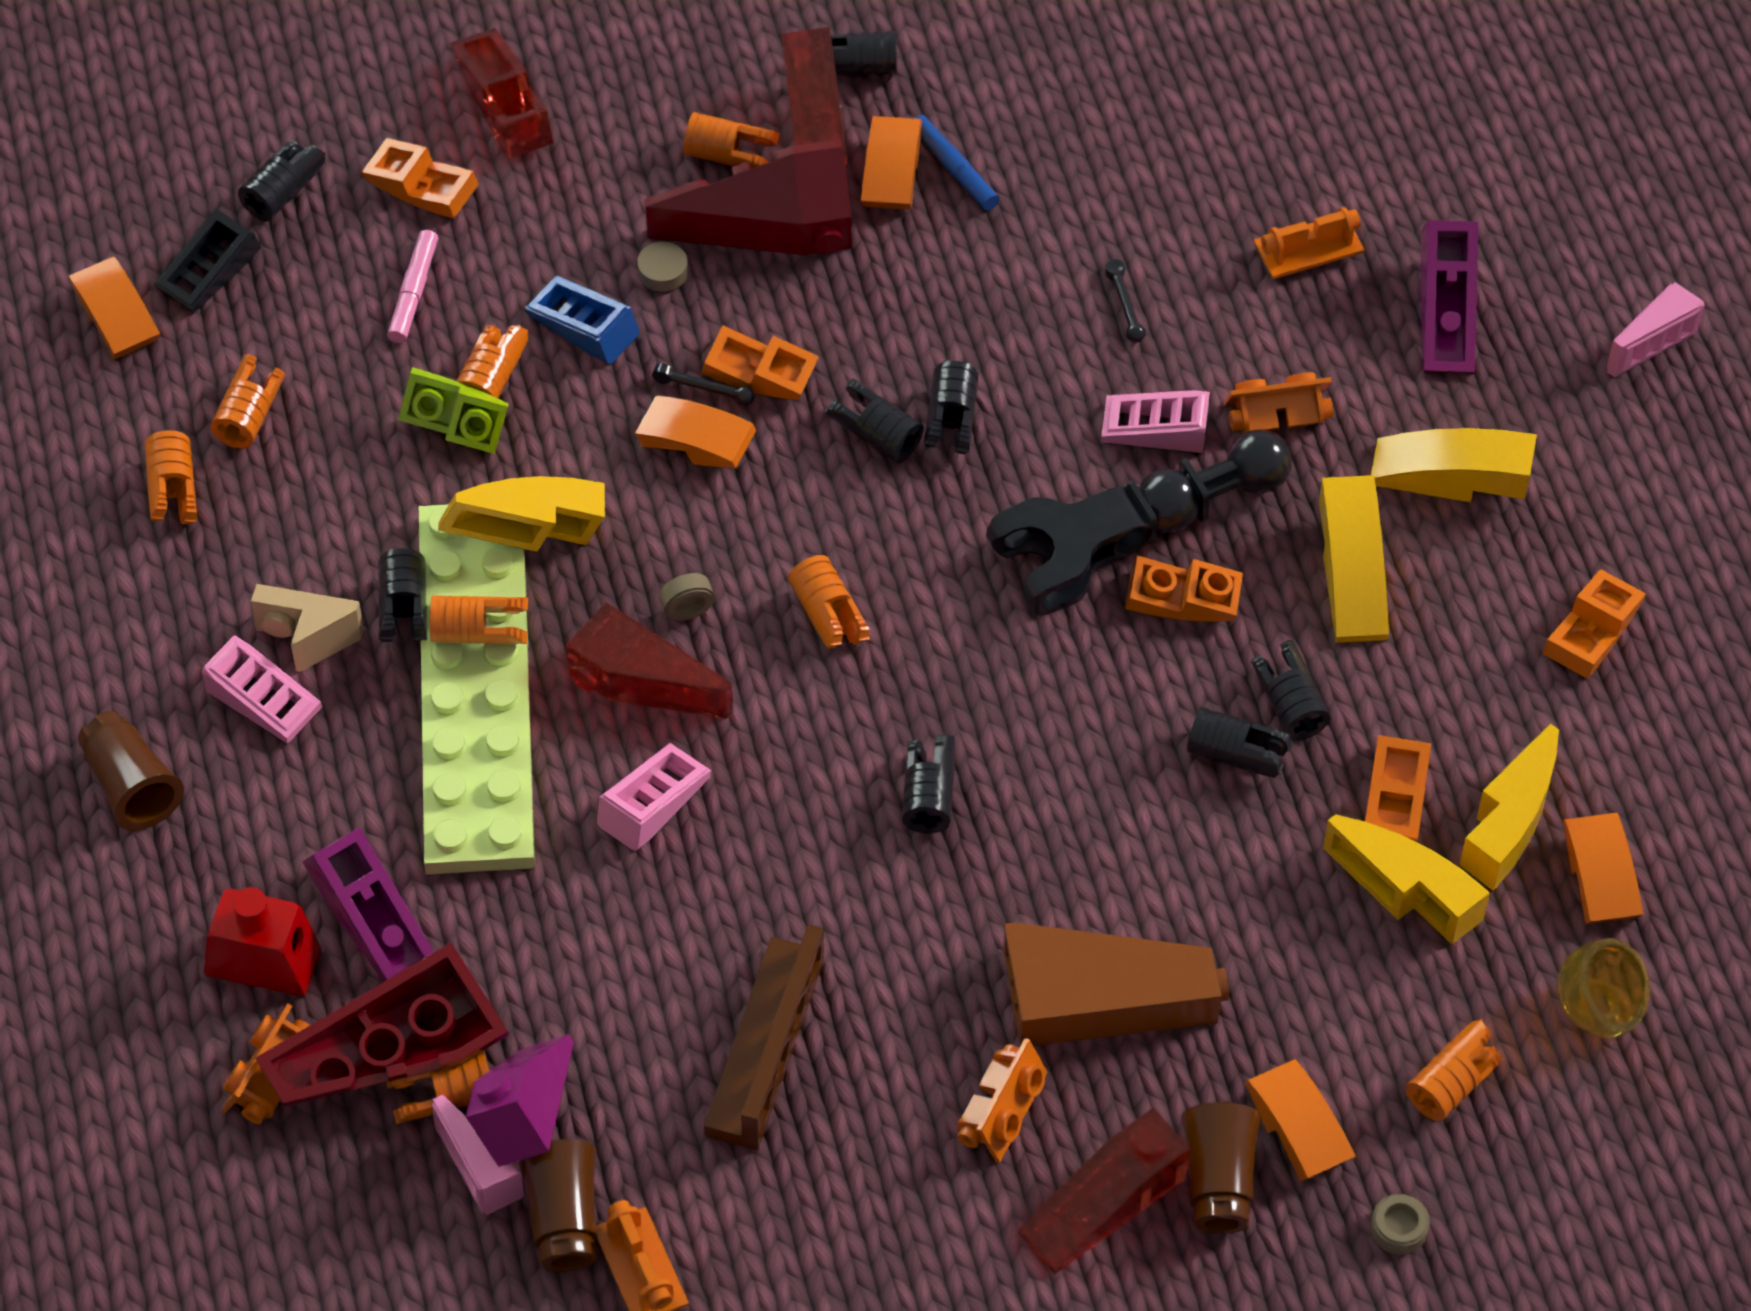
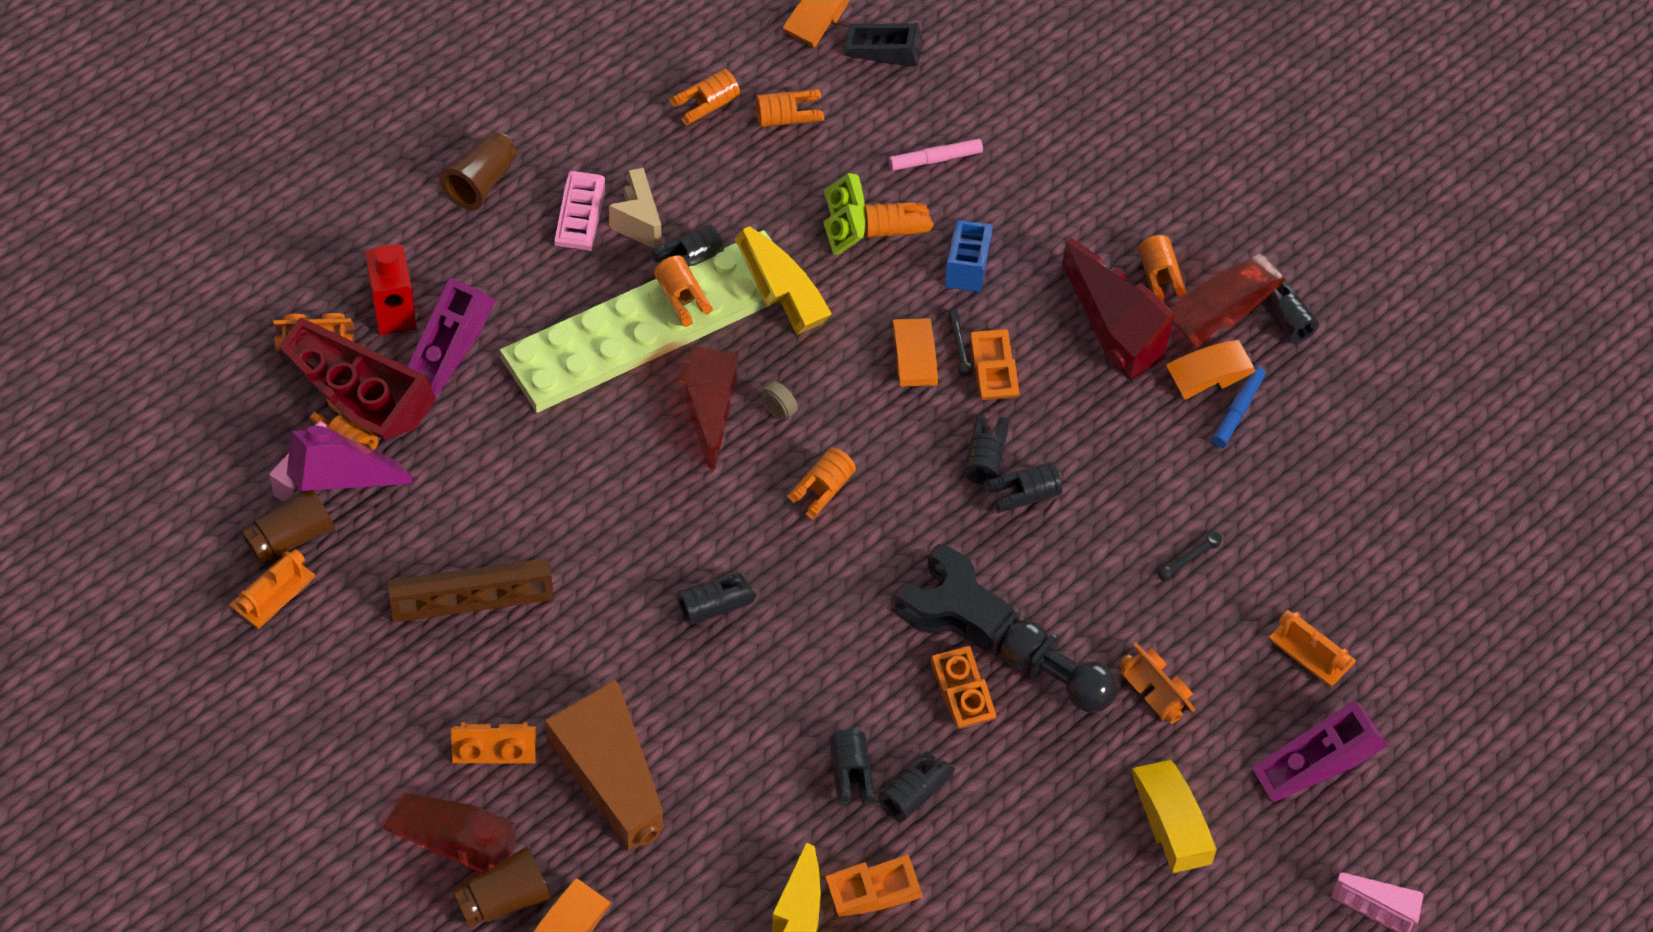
camera: 60 degrees right, 0 degrees up
(280, 179) = (970, 48): black hinge -> none
(412, 176) = (1022, 120): orange slope -> none
(503, 93) = (1117, 131): clear red slope -> none
(632, 821) = (606, 457): bright pink slope -> none
(662, 266) = (1039, 279): dark tan tile -> none
(1171, 436) = (1096, 641): bright pink slope -> none
(1354, 558) = (1049, 780): yellow slope -> none

